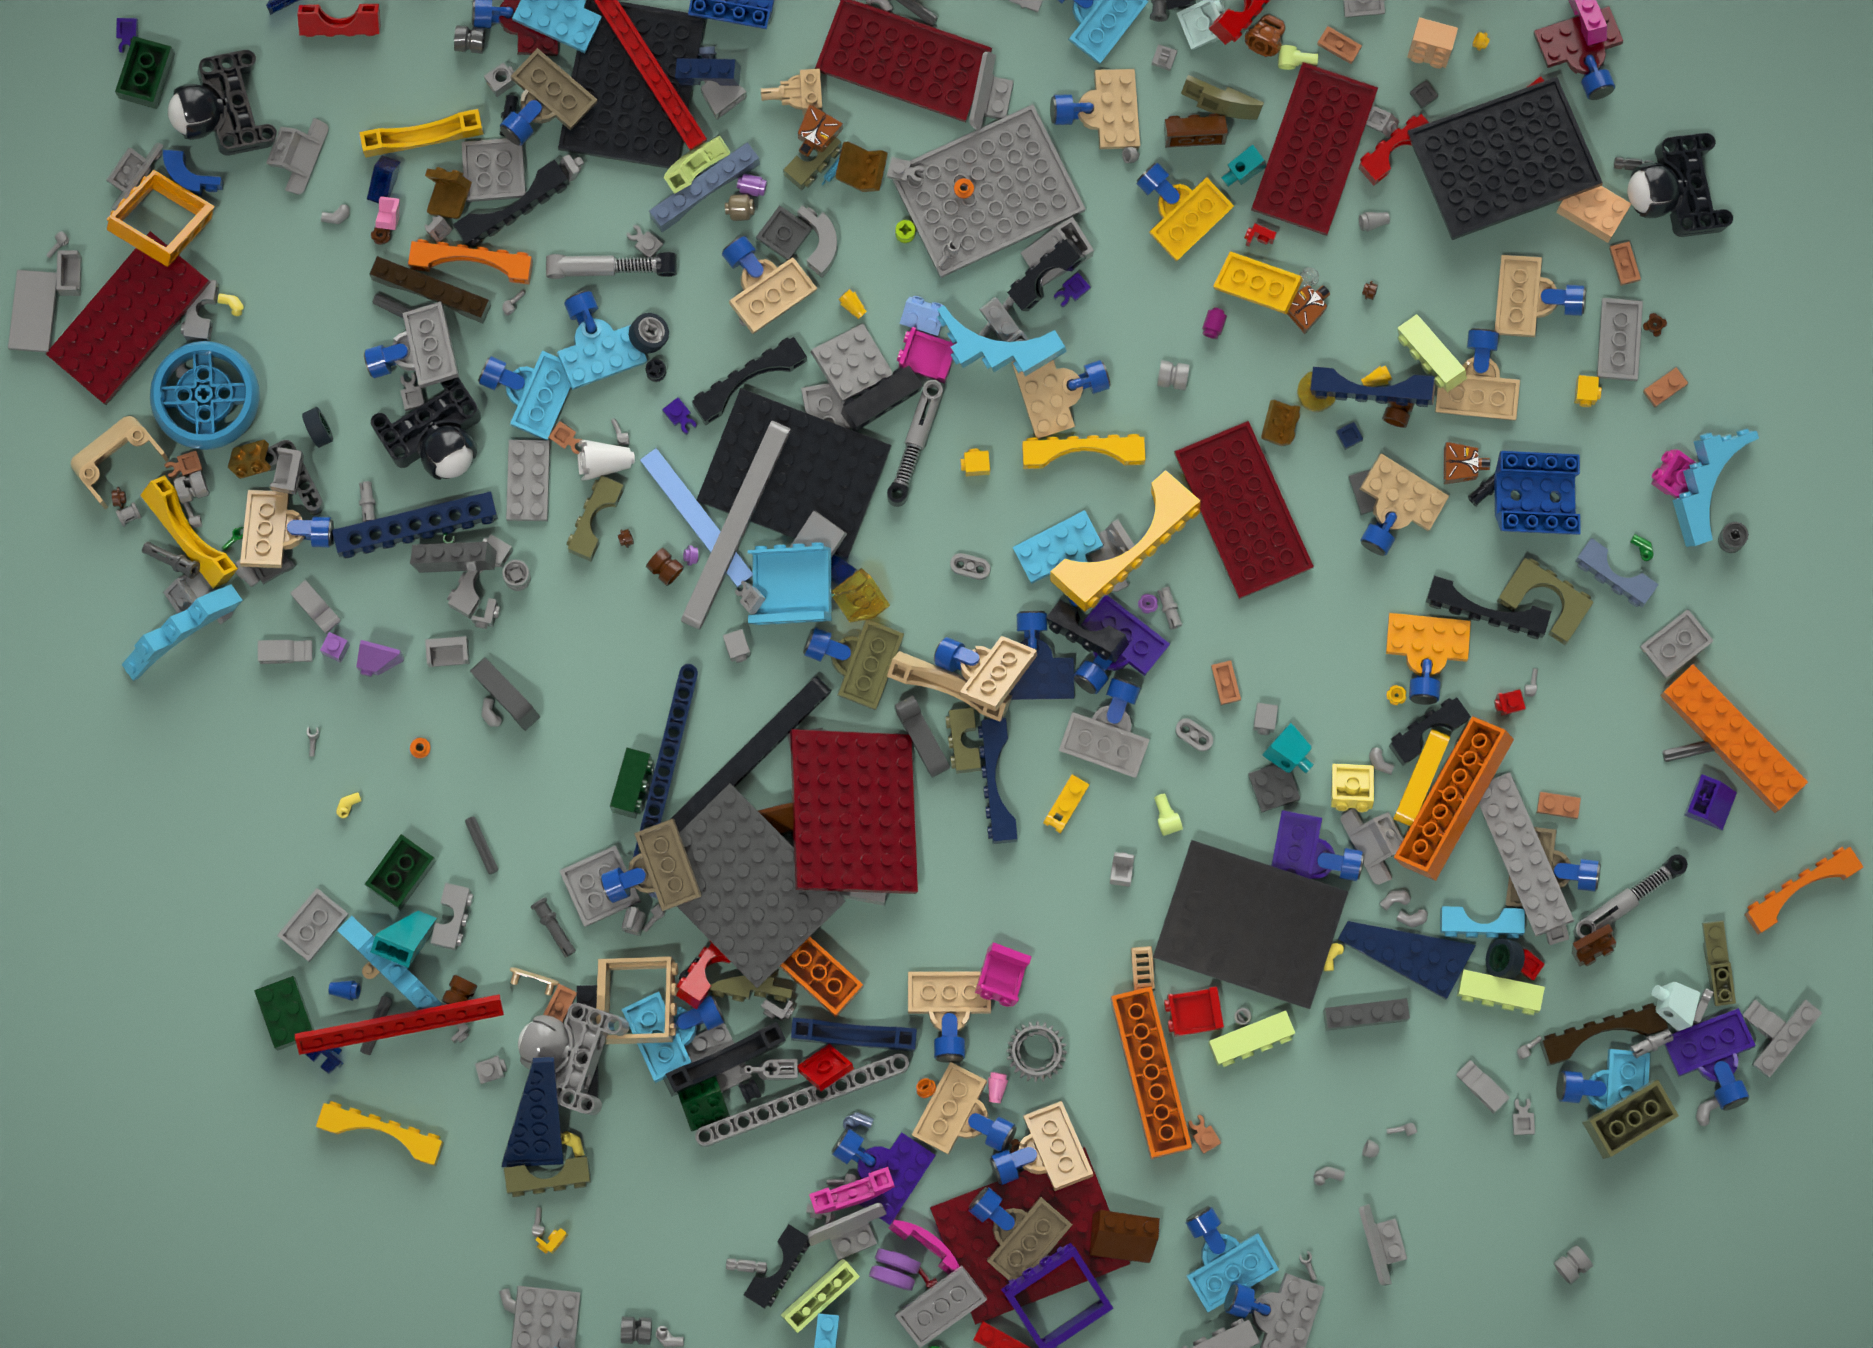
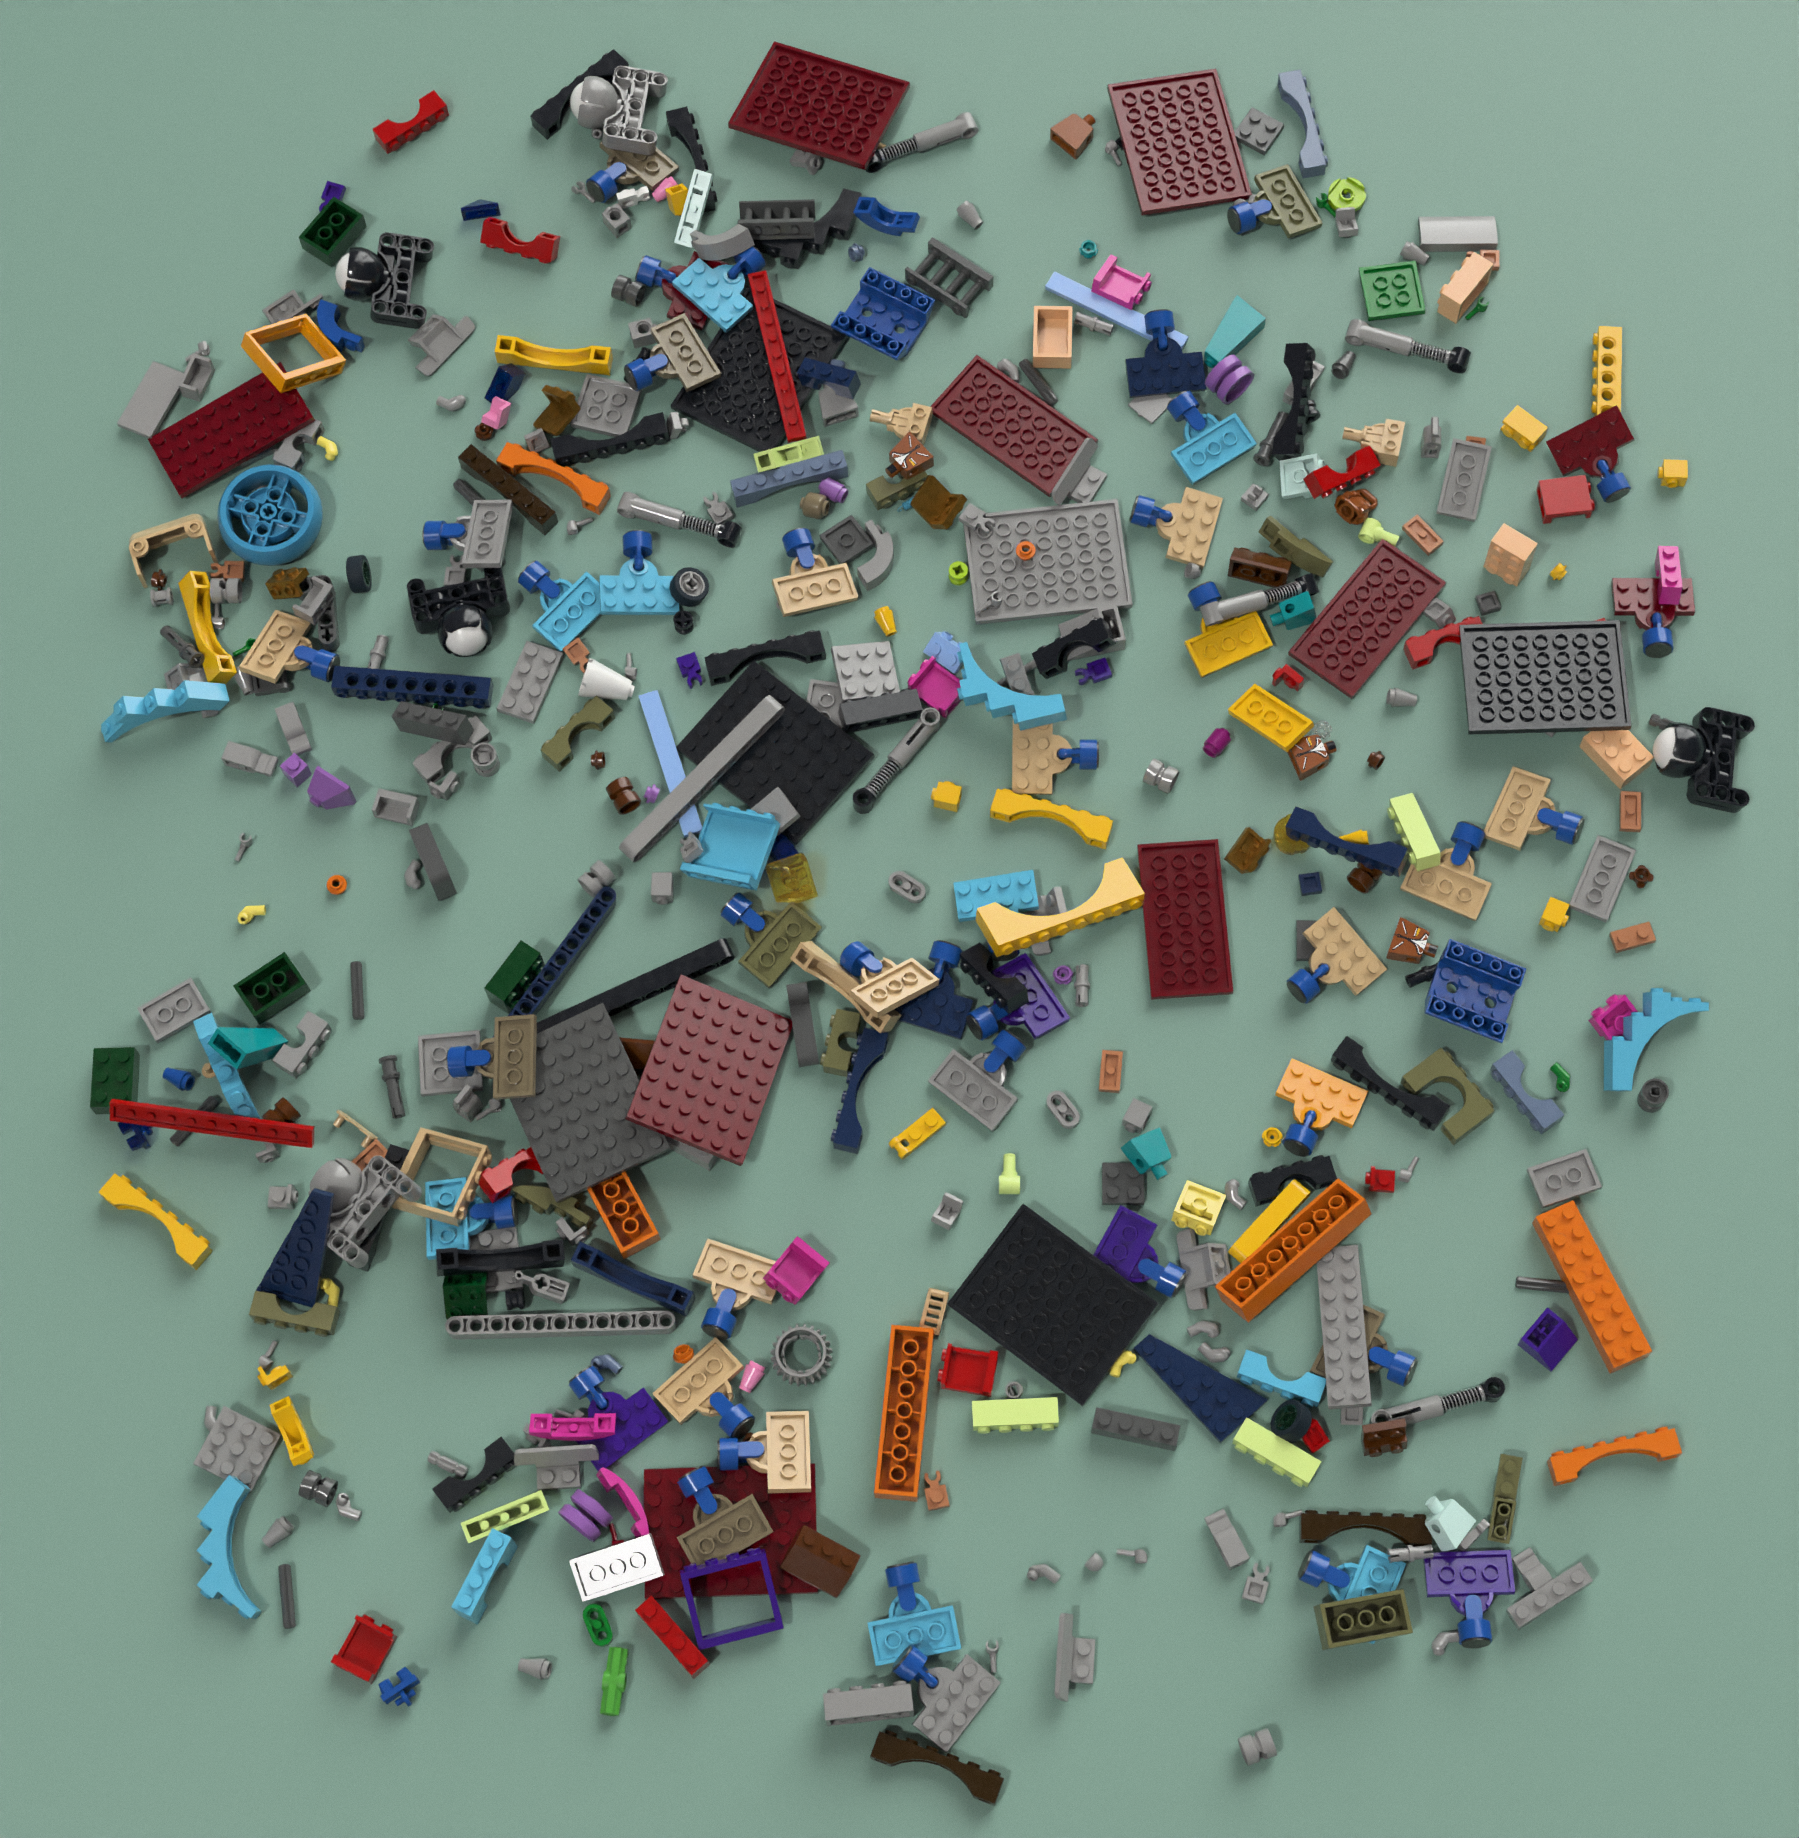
camera: 25 degrees right, 10 degrees down
(592, 1287) = (292, 1430): none -> yellow arch
(674, 652) = (598, 877): none -> light grey wheel
(825, 1067) = (593, 1300): red plate -> none
(1206, 167) = (1257, 600): none -> light grey piece
(1558, 805) = (1395, 1293): nougat plate -> none

